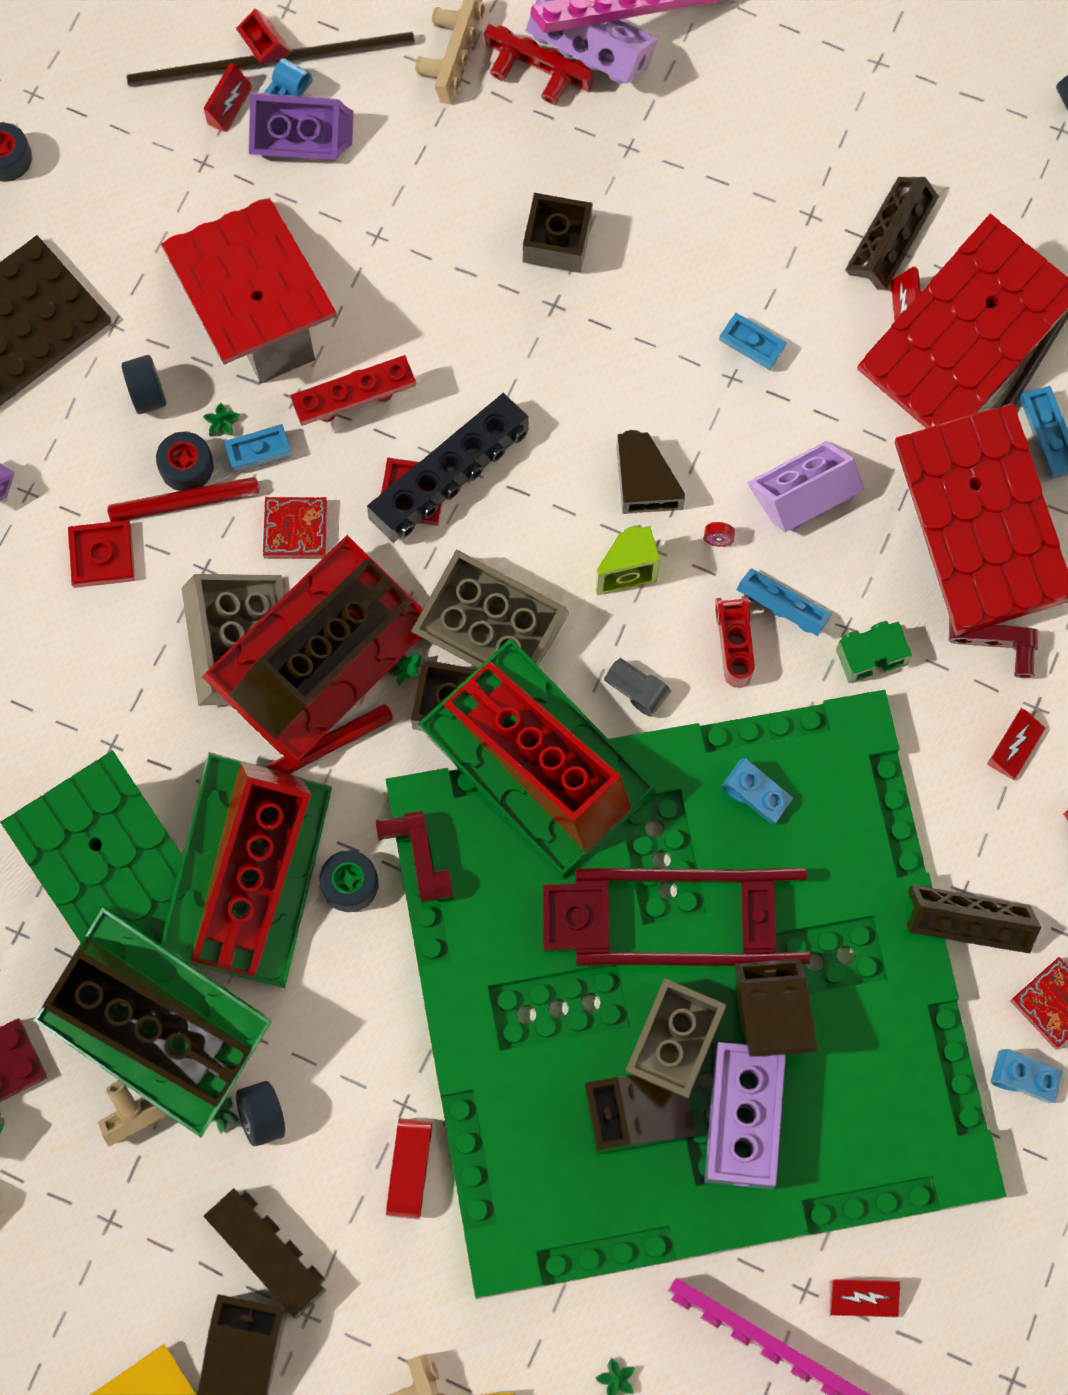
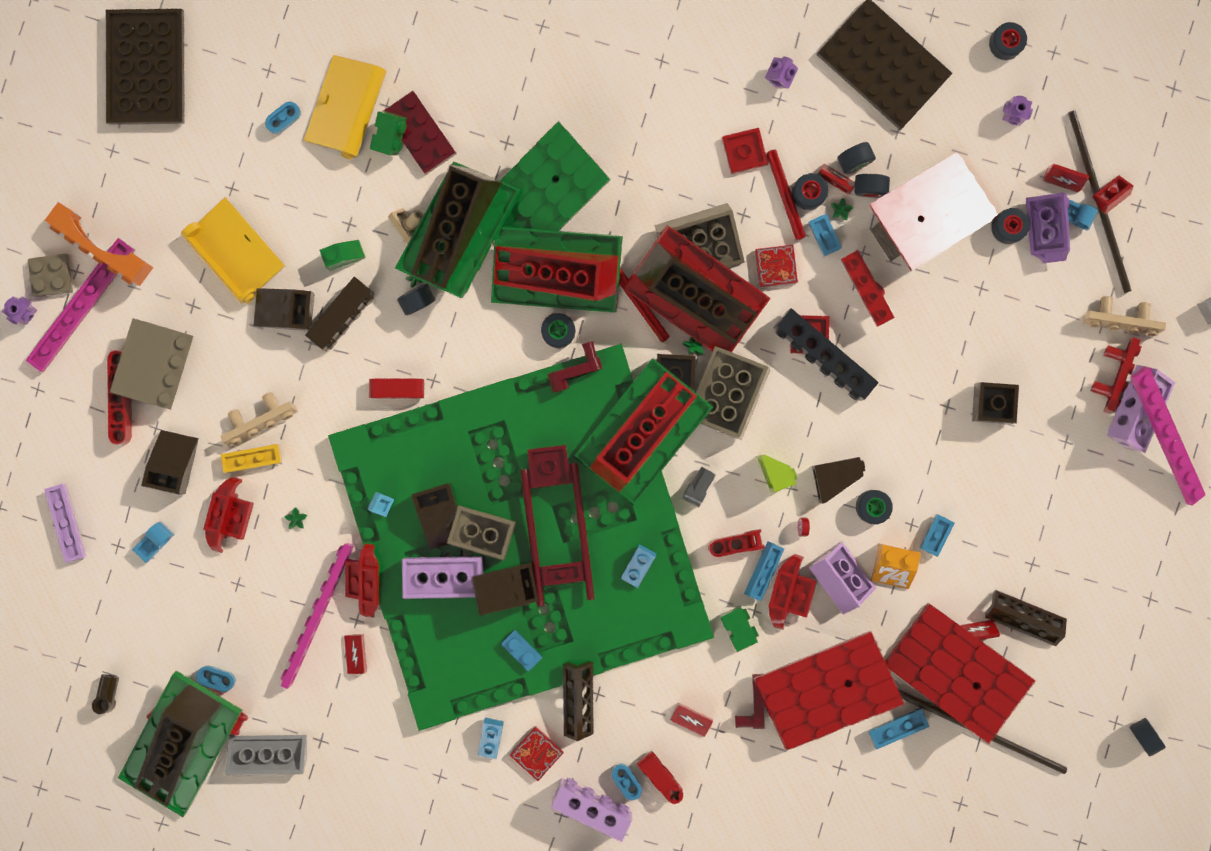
camera: 80 degrees right, 15 degrees up
(112, 150) = (1012, 110): none -> medium lavender brick
(160, 1237) = (342, 254): none -> green slope
(173, 420) = (836, 179): none -> red slope
(191, 367) = (871, 185): none -> black wheel
(298, 185) = (1005, 231): none -> black wheel
(607, 1213) = (380, 504): none -> medium azure plate
(698, 414) = (880, 508): none -> black wheel
(738, 1262) = (363, 581): none -> red plate
(794, 406) = (895, 566): none -> light orange slope
(824, 565) = (790, 592): none -> red plate
(881, 1001) = (521, 650): none -> dark azure plate

